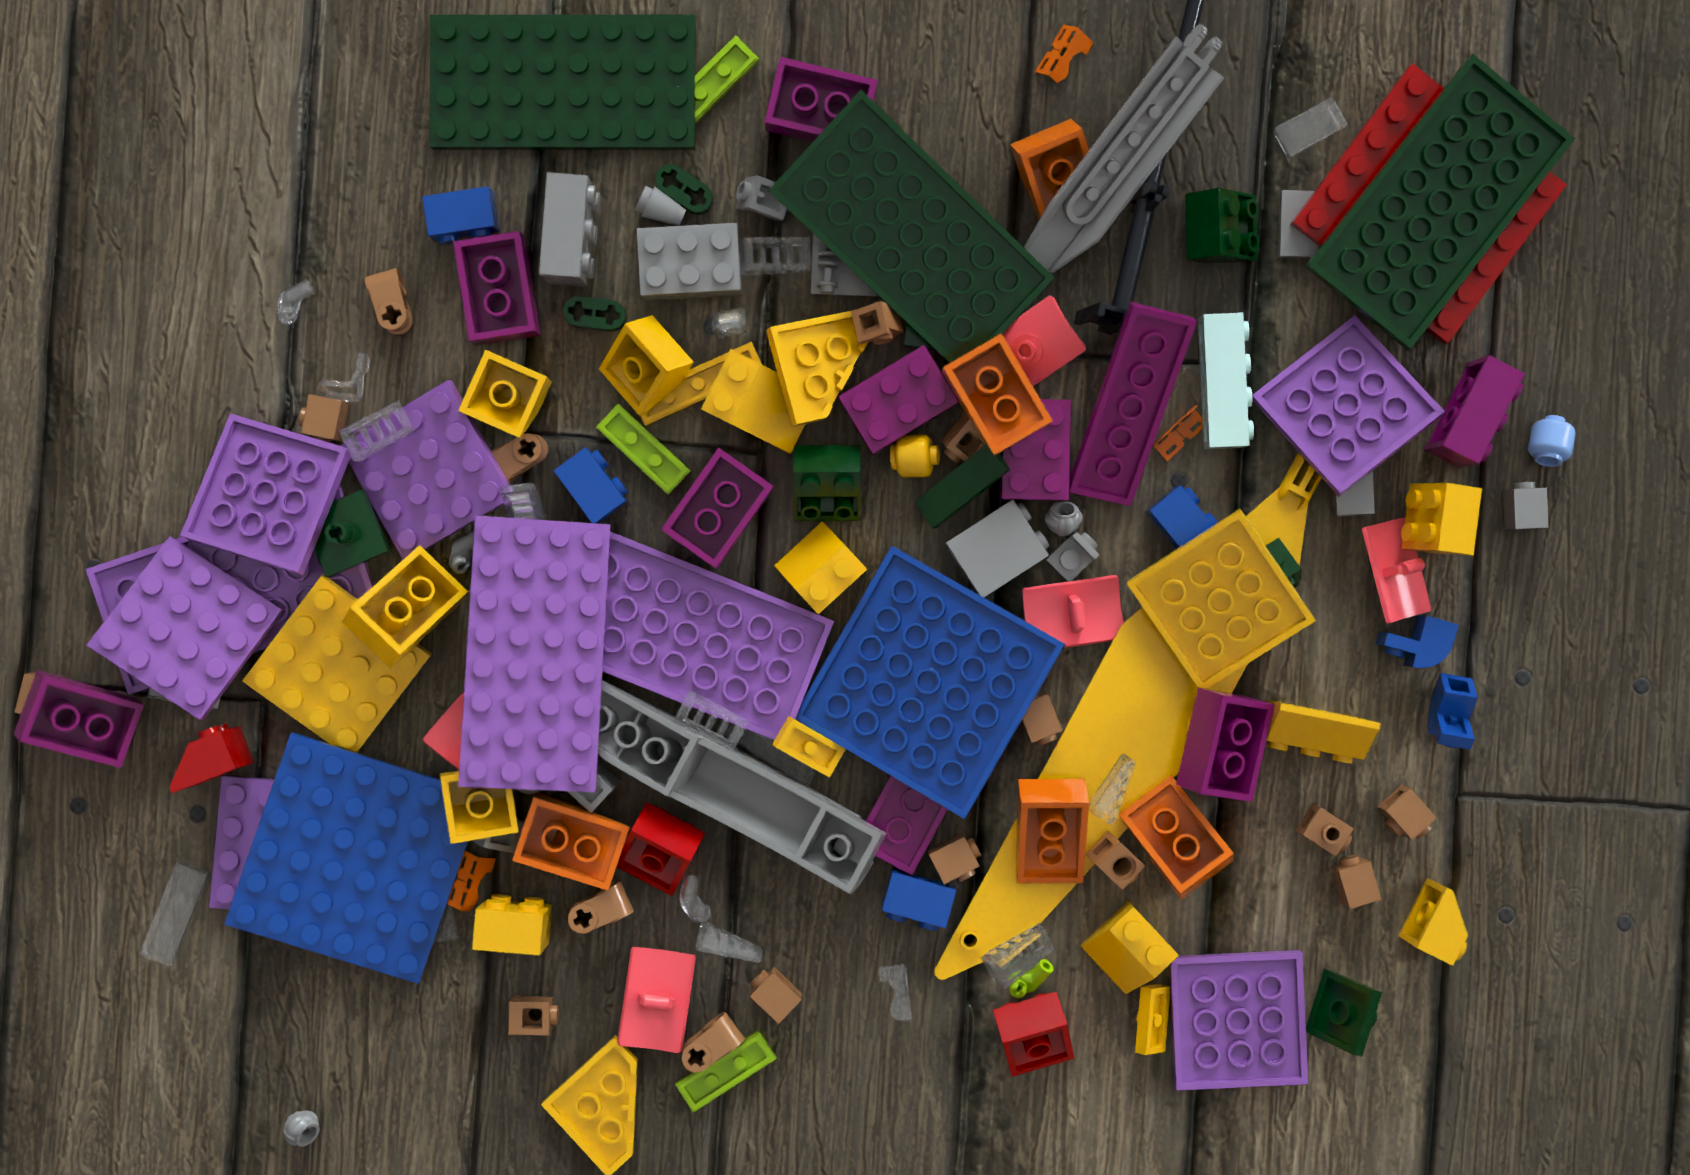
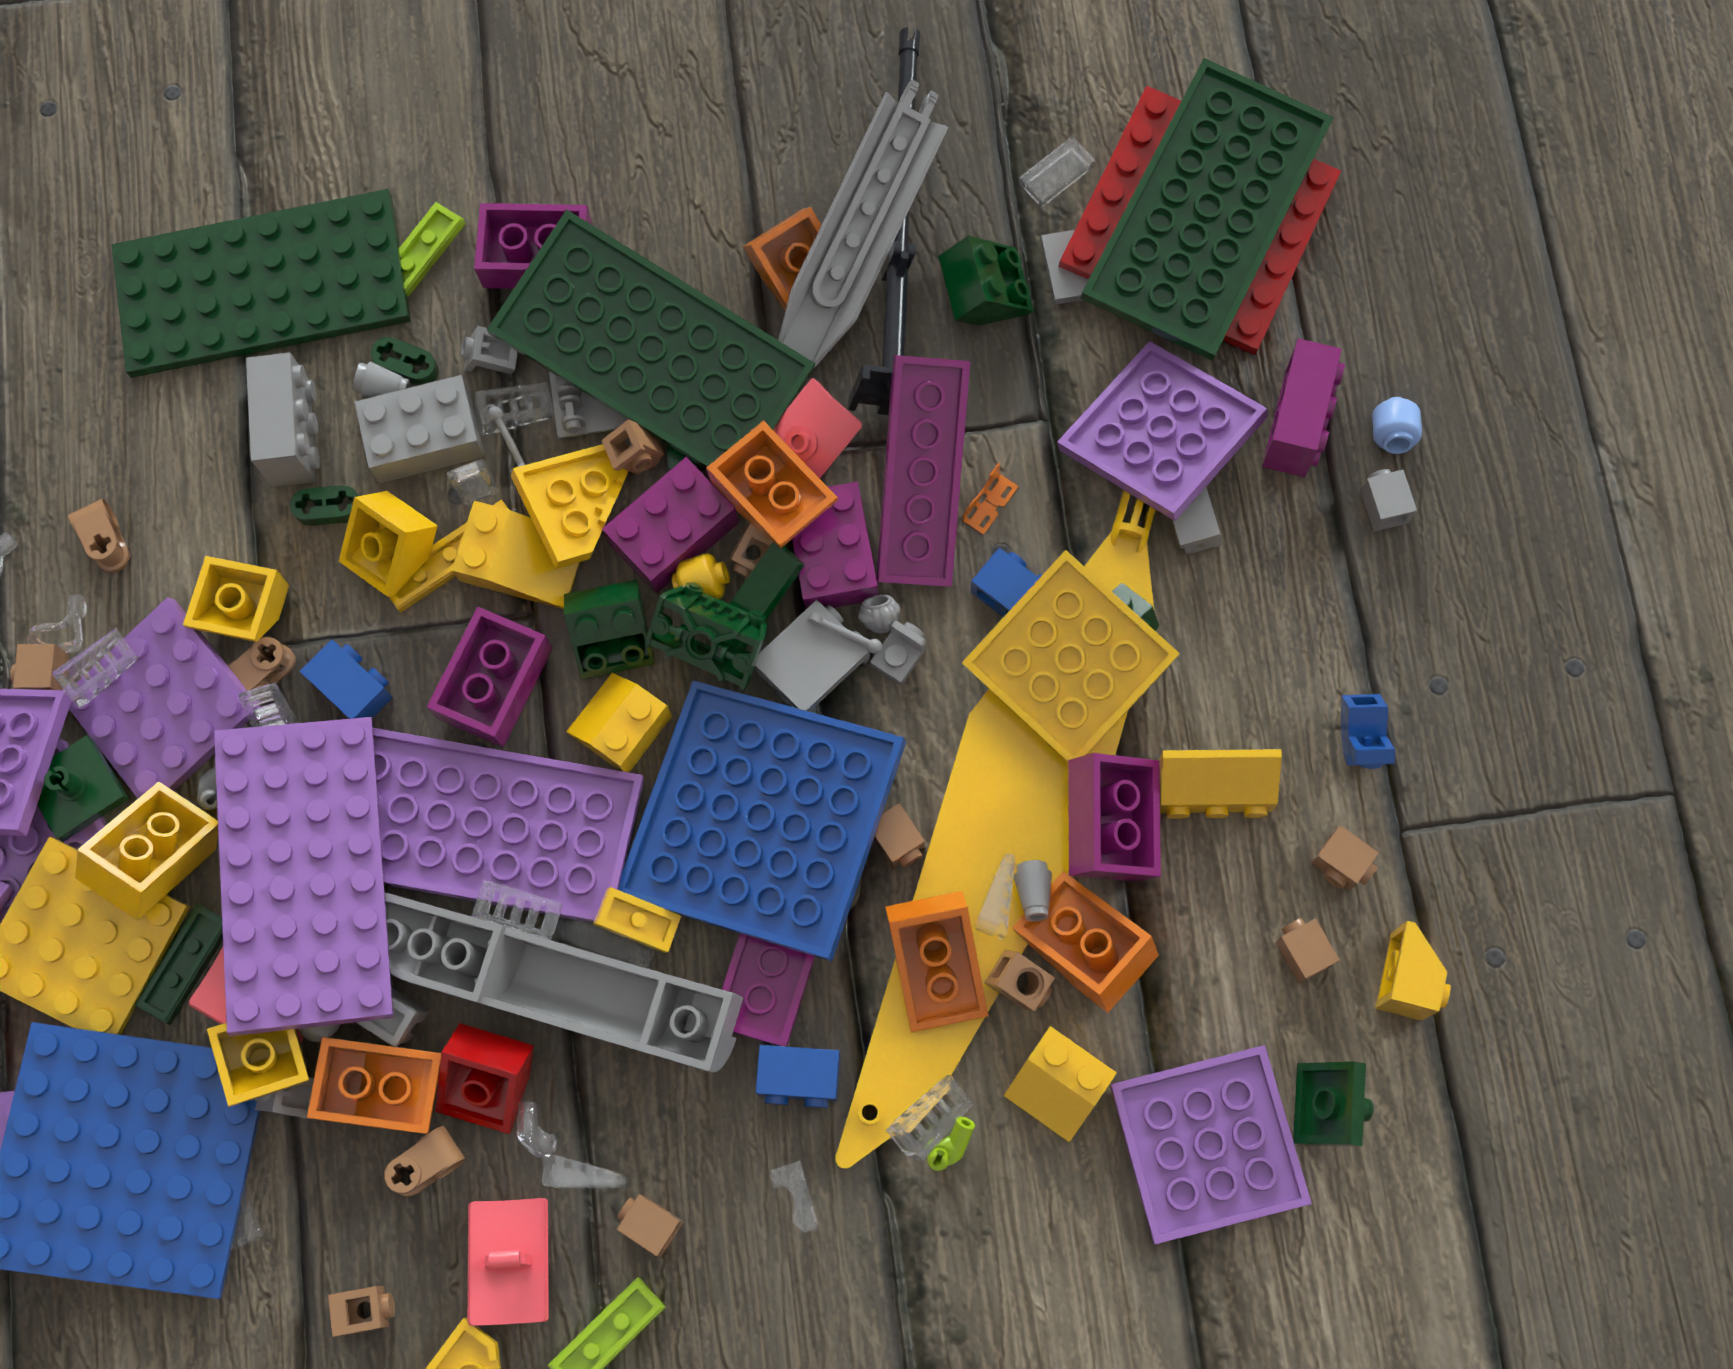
camera: 10 degrees left, 15 degrees down
(420, 700) = (182, 965): none -> dark green tile
(460, 214) = (166, 431): blue brick -> none
(482, 867) = (278, 1143): orange piece -> none
(497, 288) = (213, 495): magenta brick -> none
(512, 925) = (319, 1201): yellow brick -> none
(643, 449) = (400, 636): lime tile -> none
(715, 1039) = (586, 1295): medium nougat piece -> none
(760, 264) = (495, 413): none -> light grey hinge
(916, 512) = (716, 621): none -> dark green piece
(955, 858) = (833, 1018): medium nougat brick -> none
(1034, 1033) = (969, 1211): red slope -> none
(1053, 551) = (872, 645): none -> light grey hinge
(1076, 610) = (919, 707): coral shield -> none
(1079, 43) = (794, 140): orange piece -> none
(1144, 789) = (1034, 889): none -> light grey cone
(1152, 1019) = (1107, 1163): yellow plate -> none
(1224, 381) = (1024, 435): light aqua brick -> none
(1325, 830) = (1257, 897): medium nougat brick -> none
(1396, 572) = (1264, 594): coral shield -> none
(1428, 645) = (1320, 665): blue brick -> none
(1441, 518) = (1295, 523): yellow brick -> none

